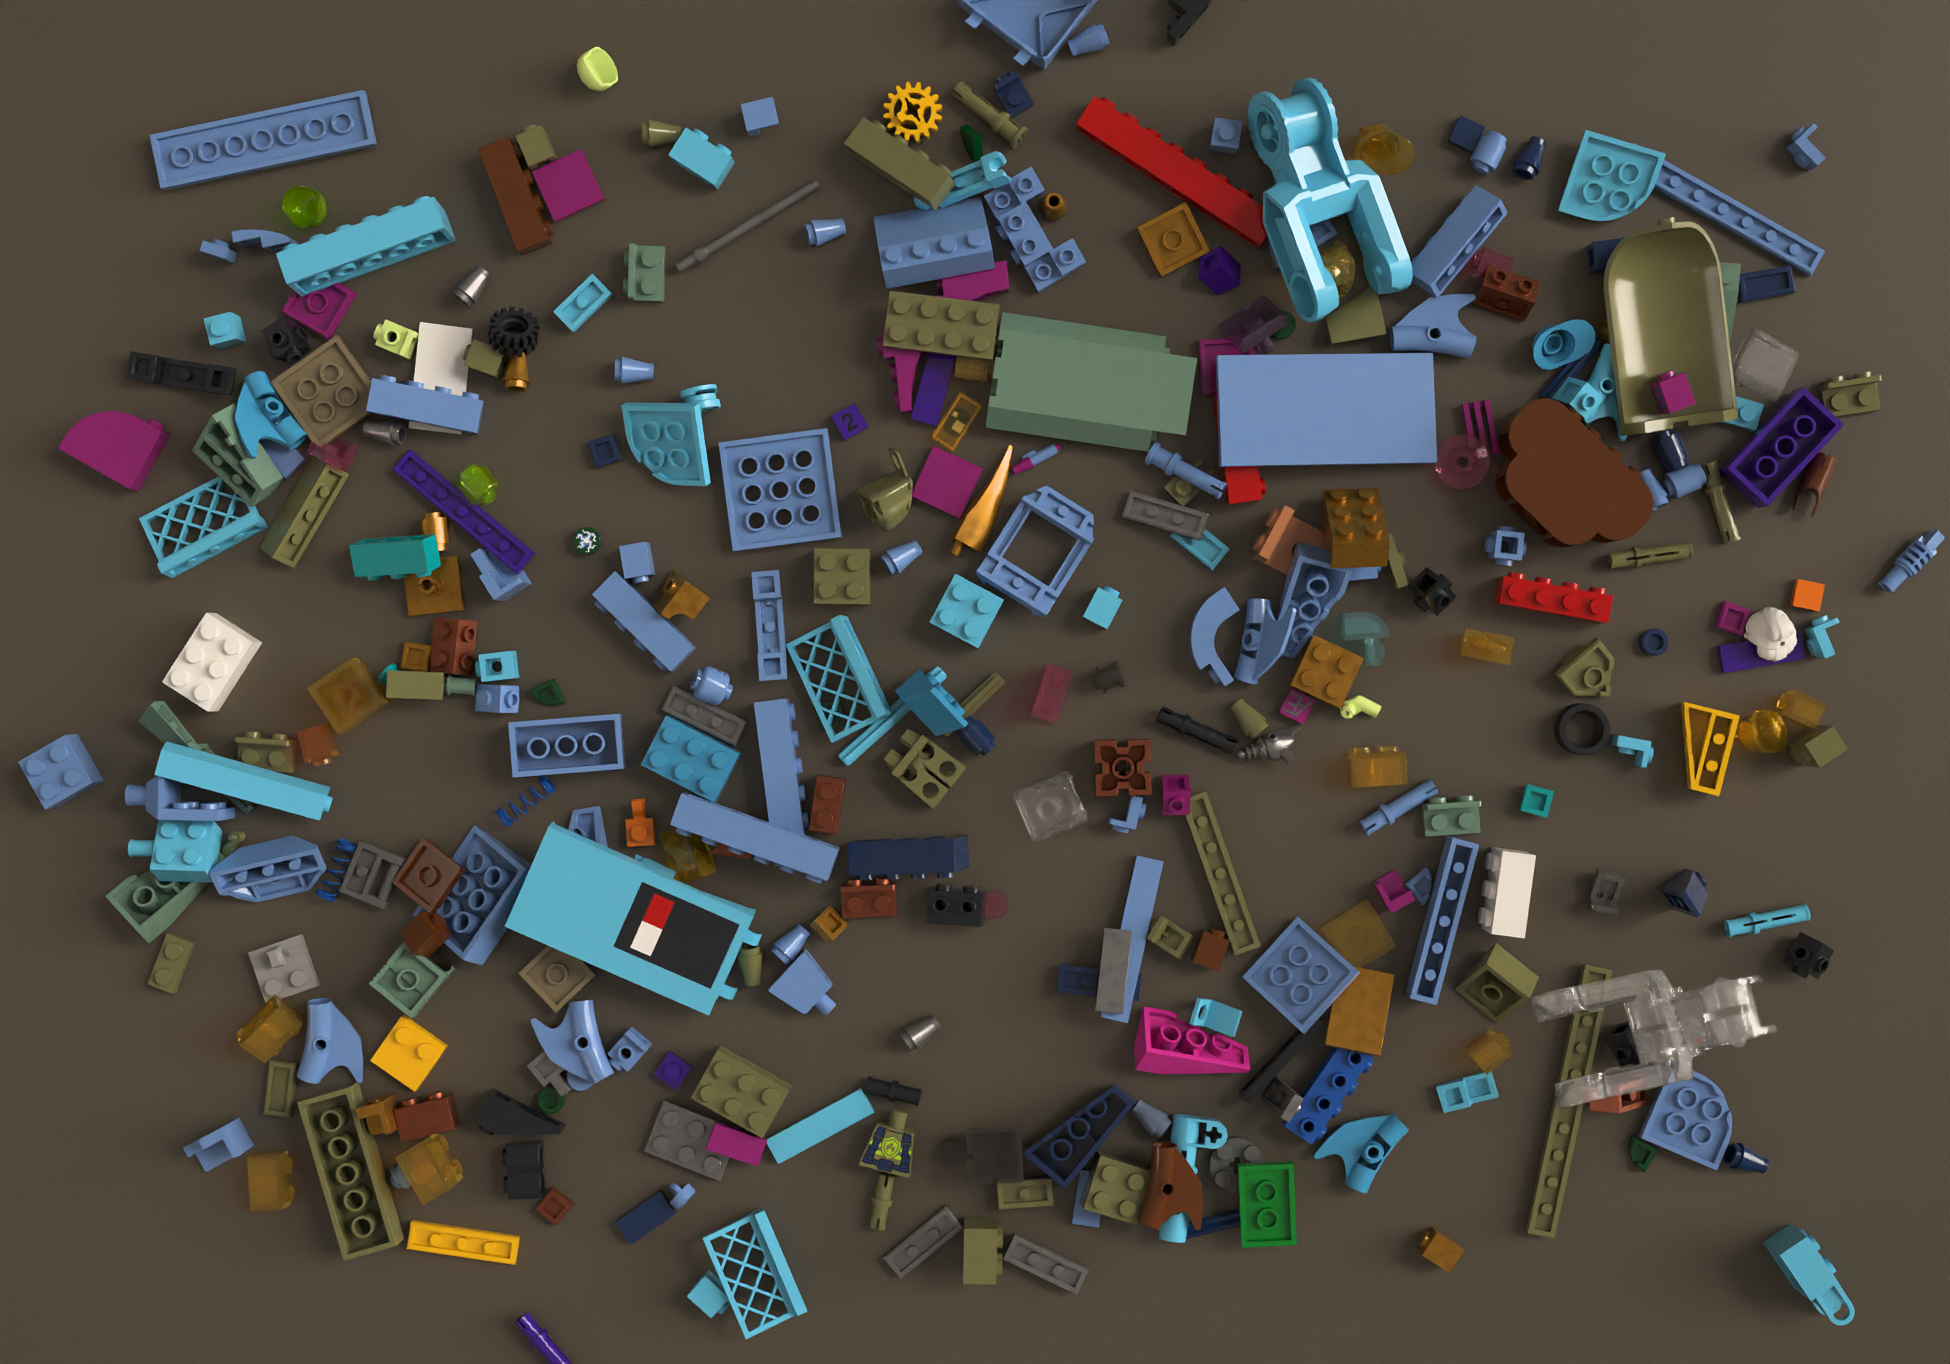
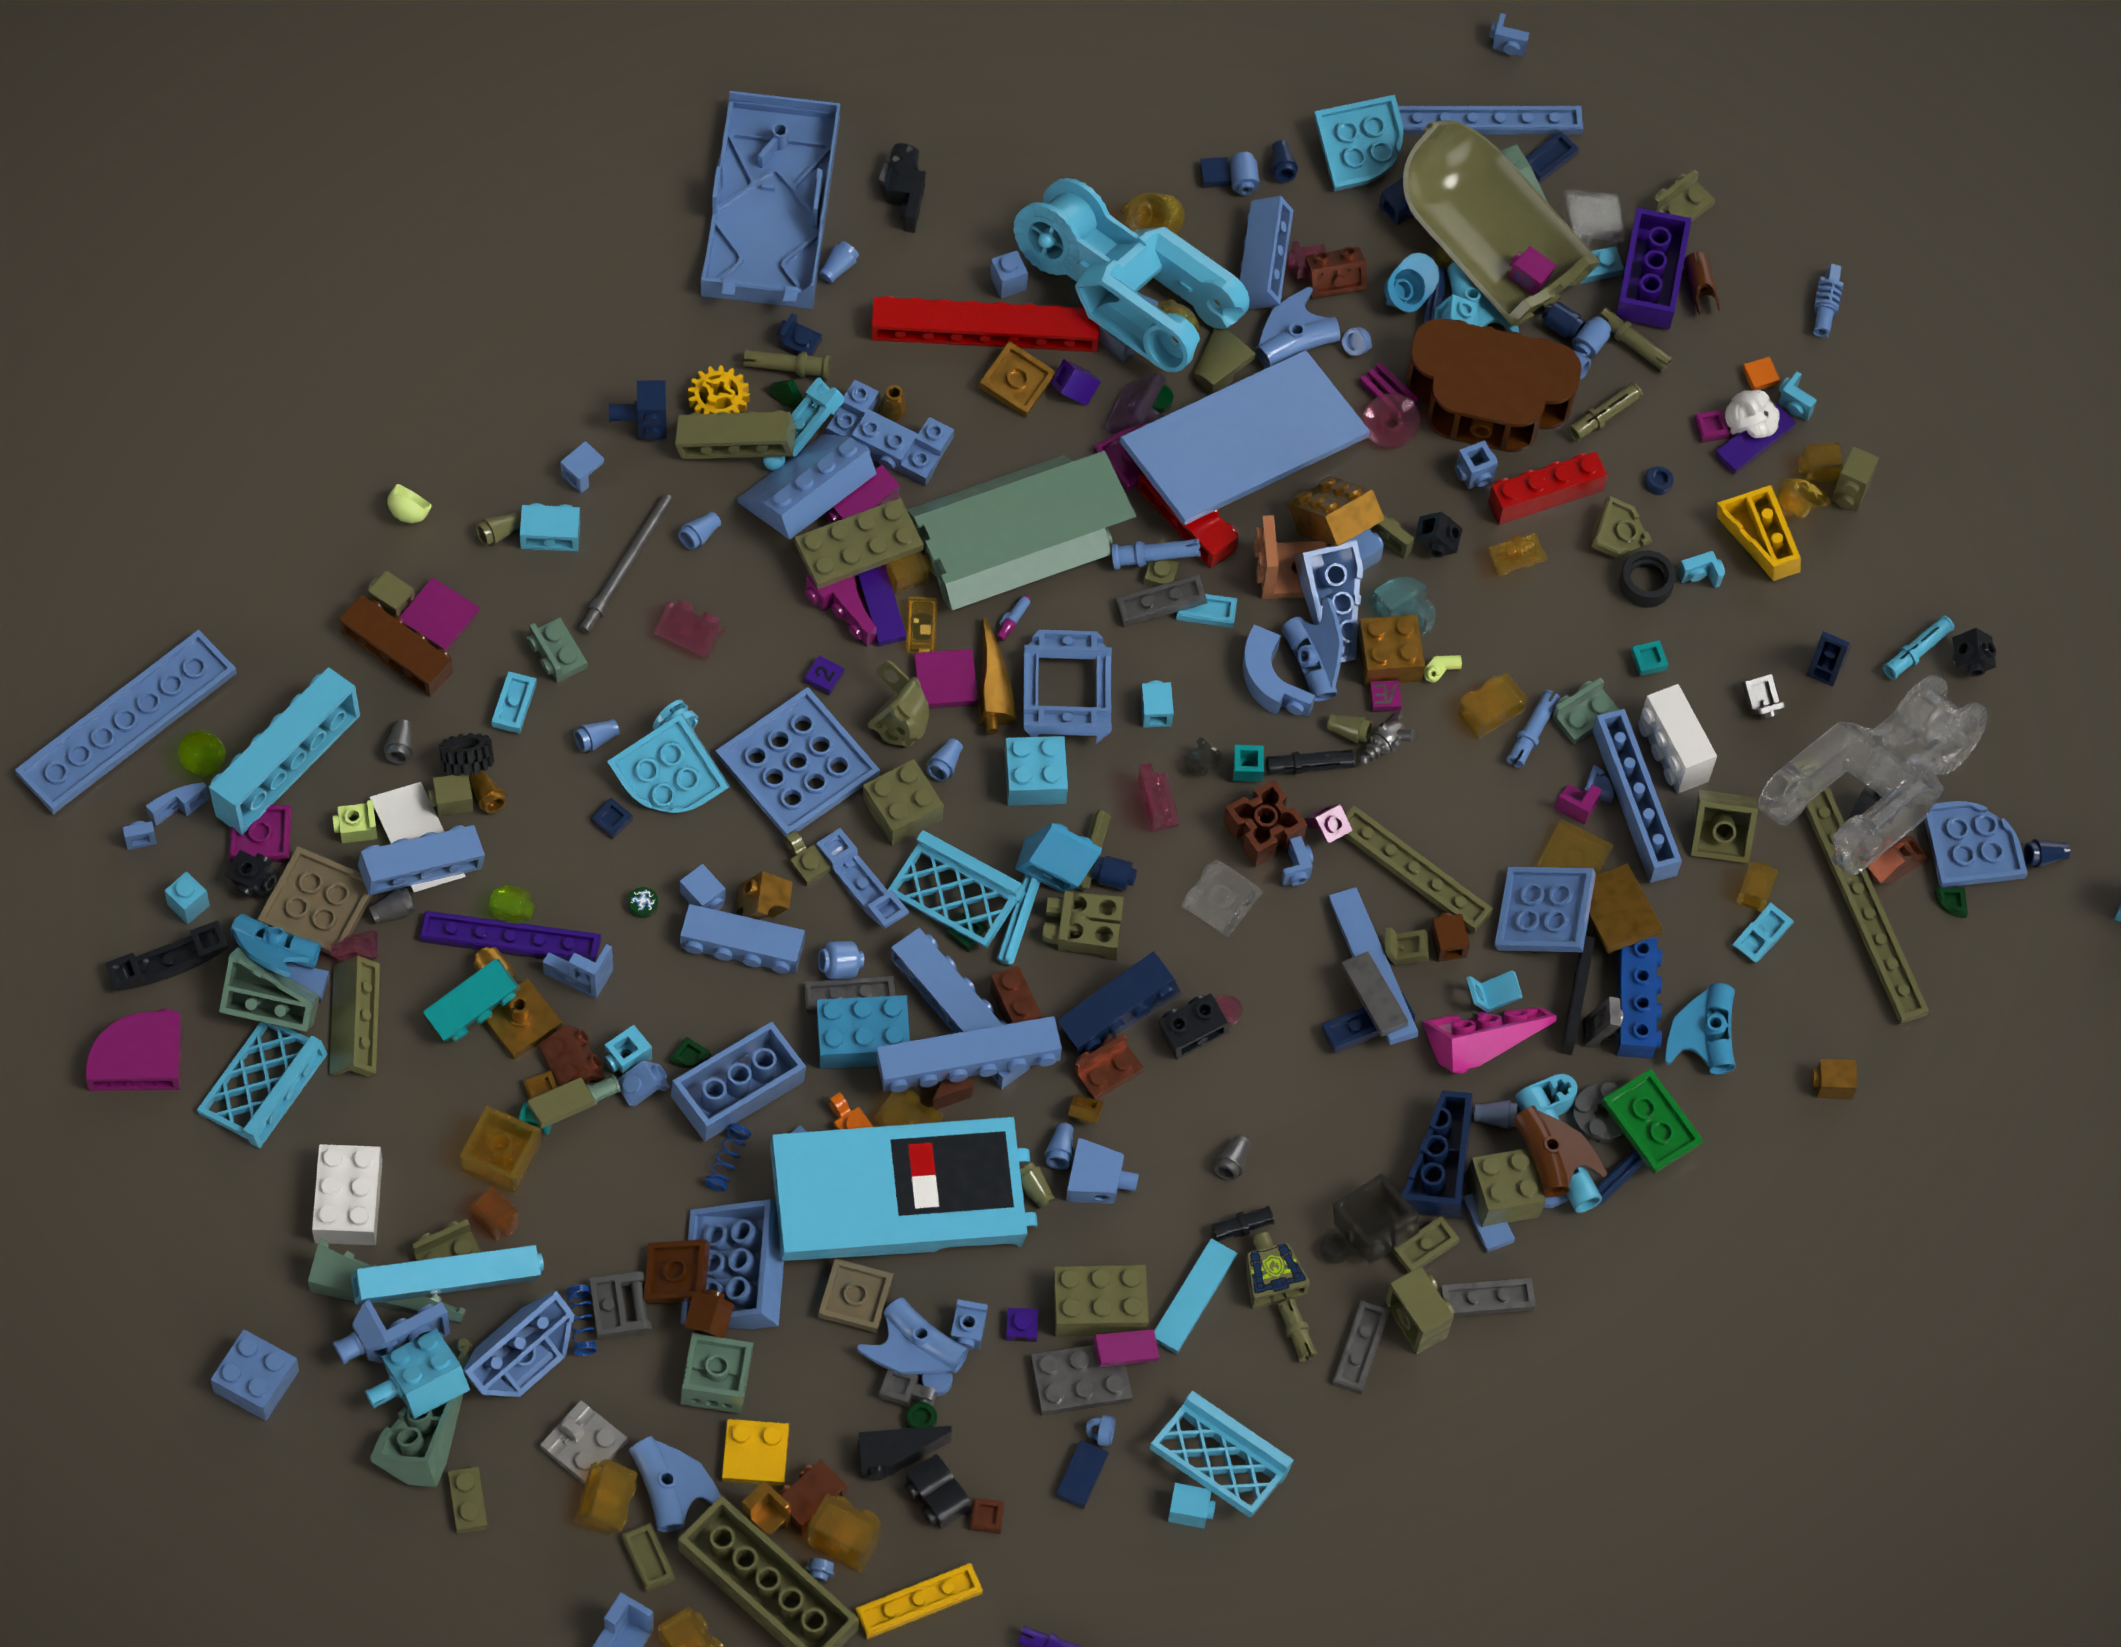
camera: 40 degrees left, 25 degrees down
(738, 582) = (808, 862): none -> olive plate
(764, 316) = (689, 628): none -> clear pink bracket
(840, 98) = (647, 411): none -> dark blue brick
(1153, 704) = (1248, 763): none -> teal plate
(1481, 369) = (1356, 341): none -> medium blue tile

